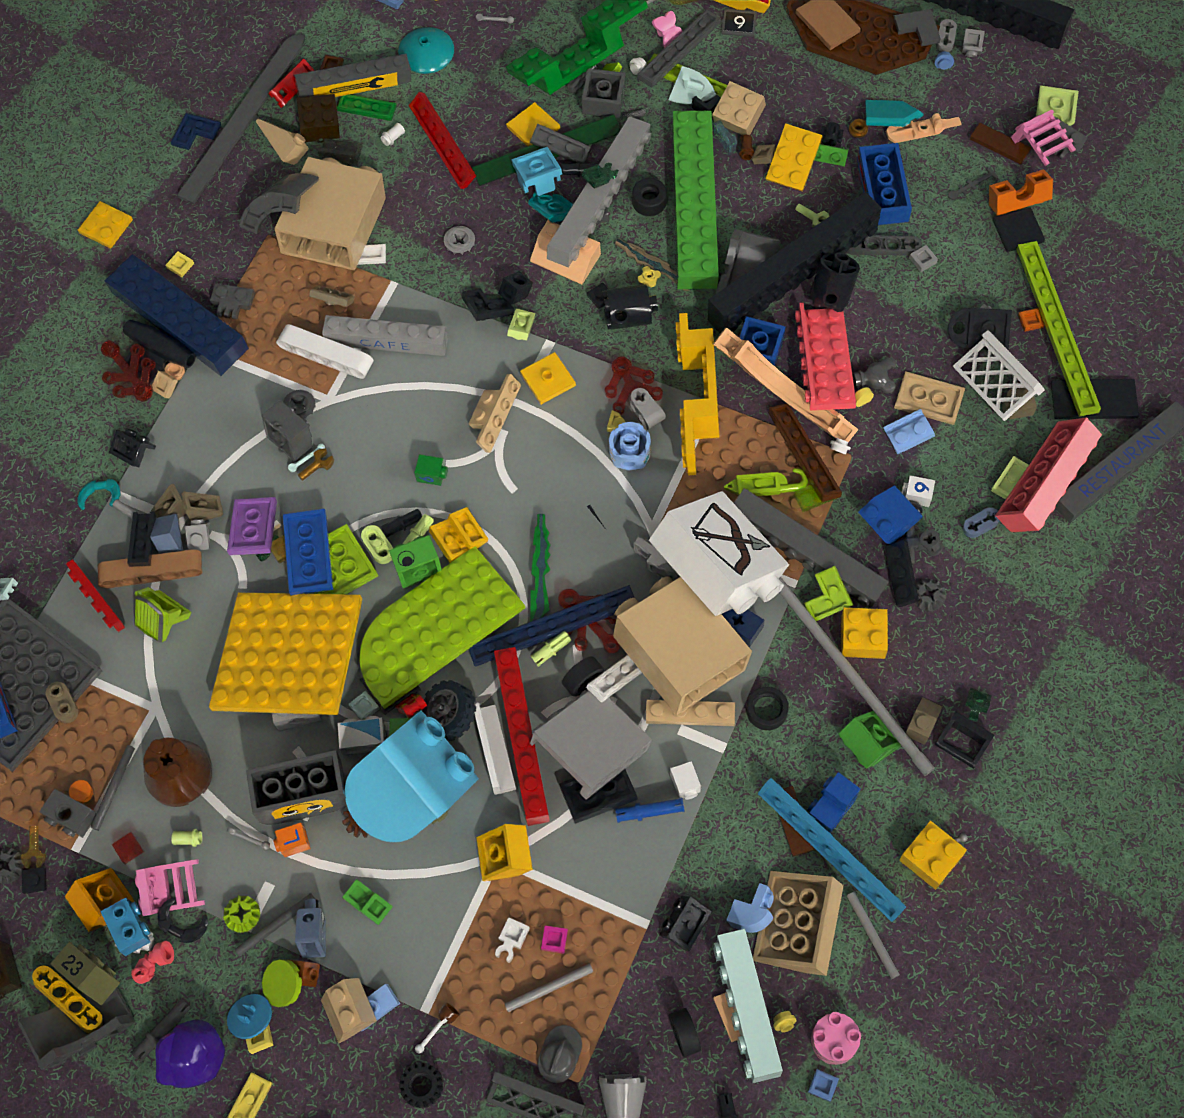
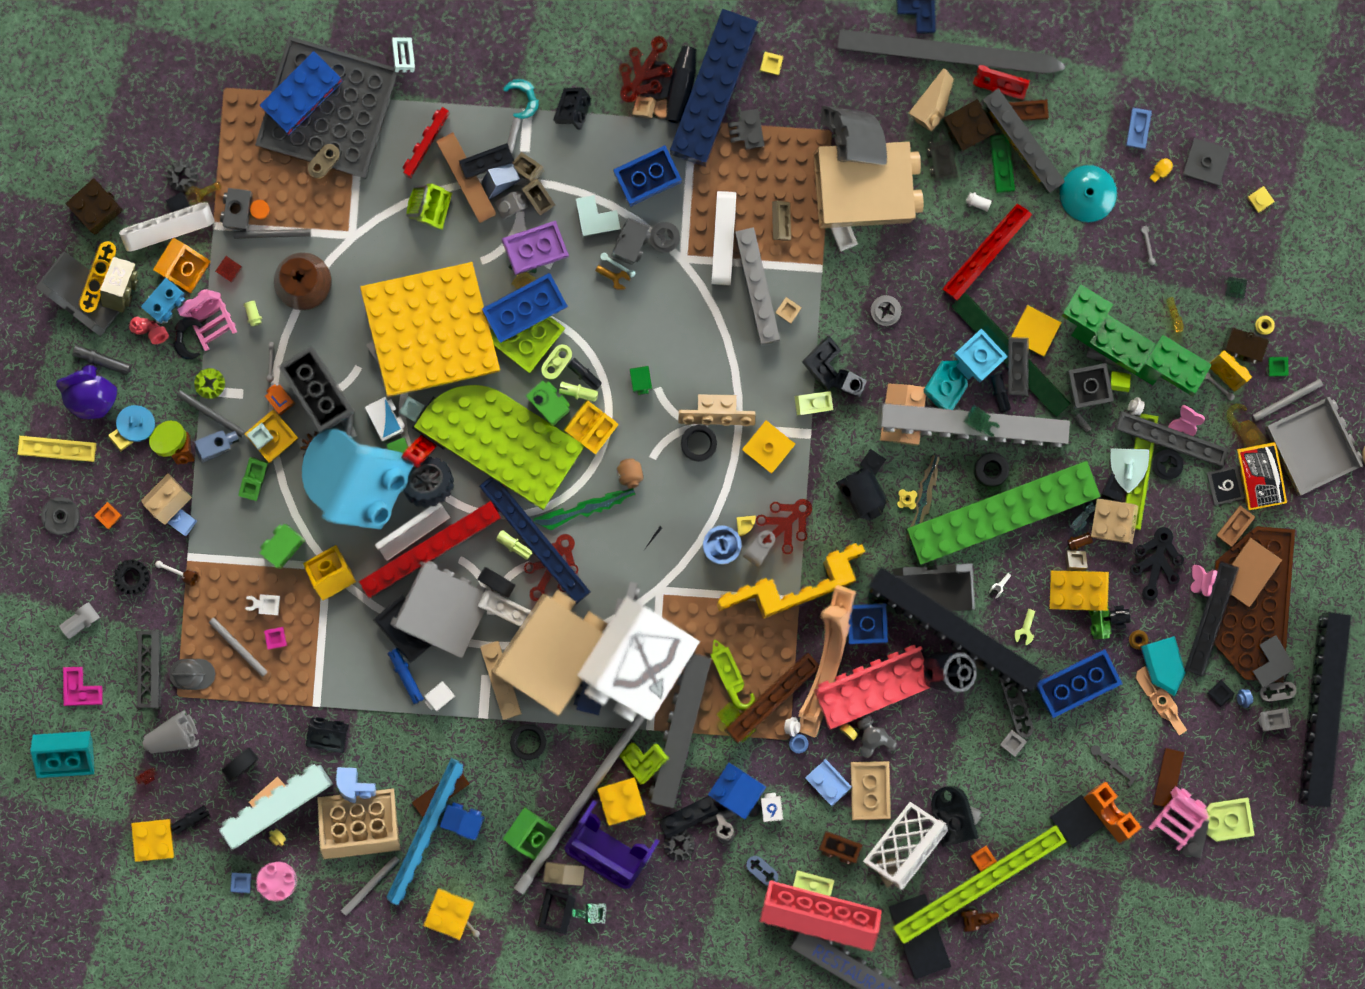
camera: 65 degrees right, 20 degrees up
(50, 900) = (167, 227): none -> white beam
(230, 396) = (647, 176): none -> blue brick
(250, 467) = (591, 221): none -> light aqua tile
(322, 873) = (260, 436): none -> light aqua tile
(328, 864) = (282, 434): none -> yellow plate
(339, 1087) = (108, 515): none -> orange plate
(421, 315) = (788, 310): none -> tan plate
(451, 885) = (282, 545): none -> bright green brick
(520, 452) = (713, 443): none -> black tyre
(521, 510) = (630, 473): none -> medium nougat head
(574, 13) = (1176, 319): none -> clear yellow bar
(700, 52) = (1175, 459): none -> black gear
(765, 225) = (999, 586): none -> white hand
(780, 23) = (1235, 526): none -> medium nougat plate
(790, 91) = (1158, 560): none -> black plant
(822, 58) = (1203, 580): none -> bright pink animal
(859, 447) = (798, 743): none -> medium blue plate
(860, 60) = (1212, 619): none -> black tile
(920, 667) = (605, 853): none -> dark purple windscreen
(932, 80) = (1220, 693): none -> black tile
(980, 437) = (841, 847): none -> reddish brown brick
(1093, 341) = (974, 920): none -> reddish brown piece

